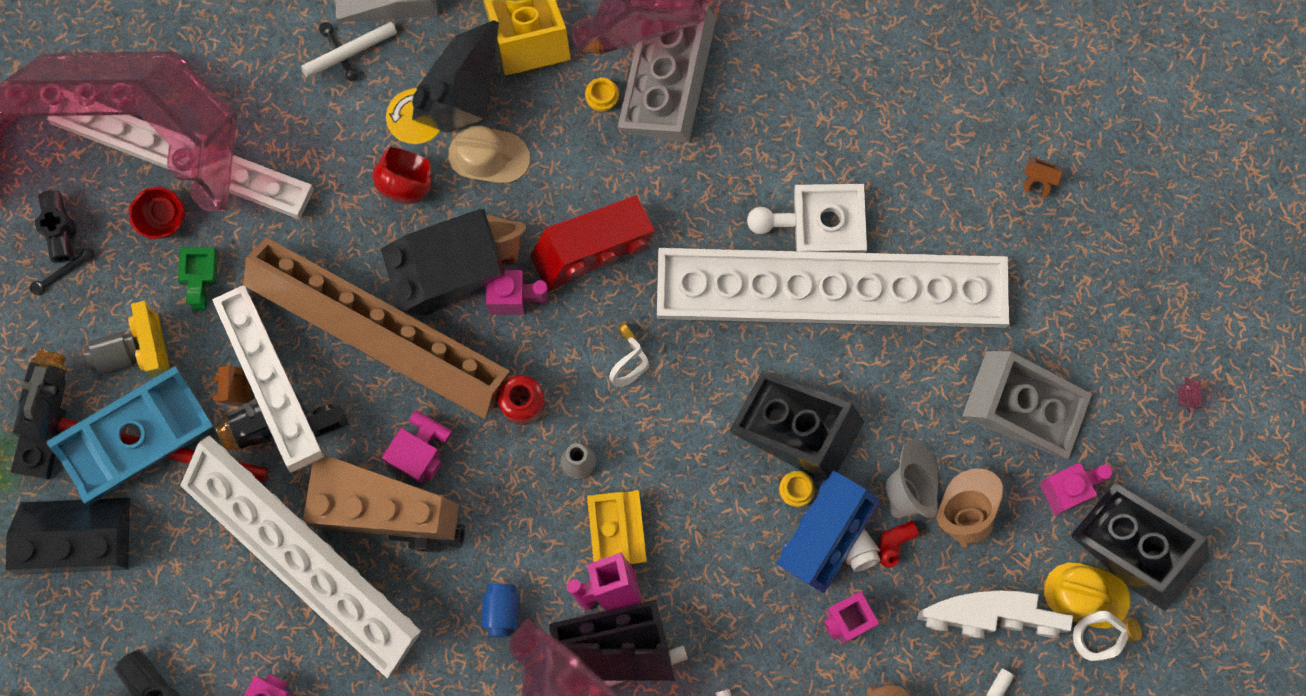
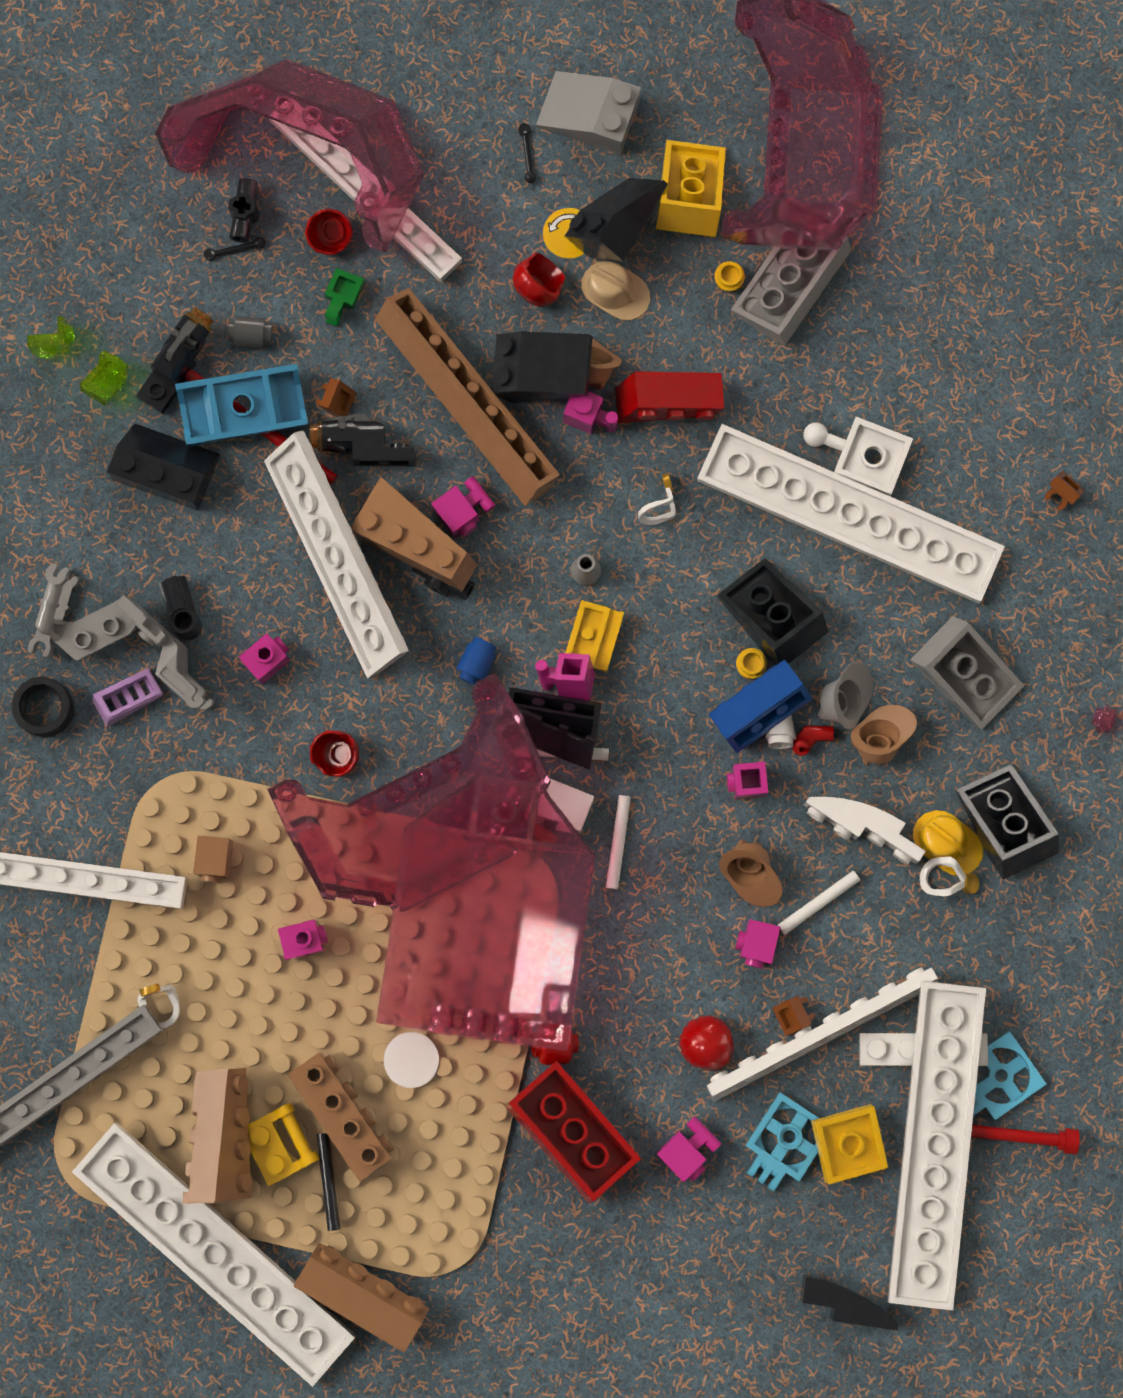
camera: 25 degrees right, 5 degrees up
(147, 327) = (285, 321): yellow plate -> none
(268, 379) = (366, 402): white plate -> none
(348, 49) = (536, 155): white bar -> none
(514, 390) = (558, 492): red head -> none
(1073, 486) = (972, 752): dark pink brick -> none

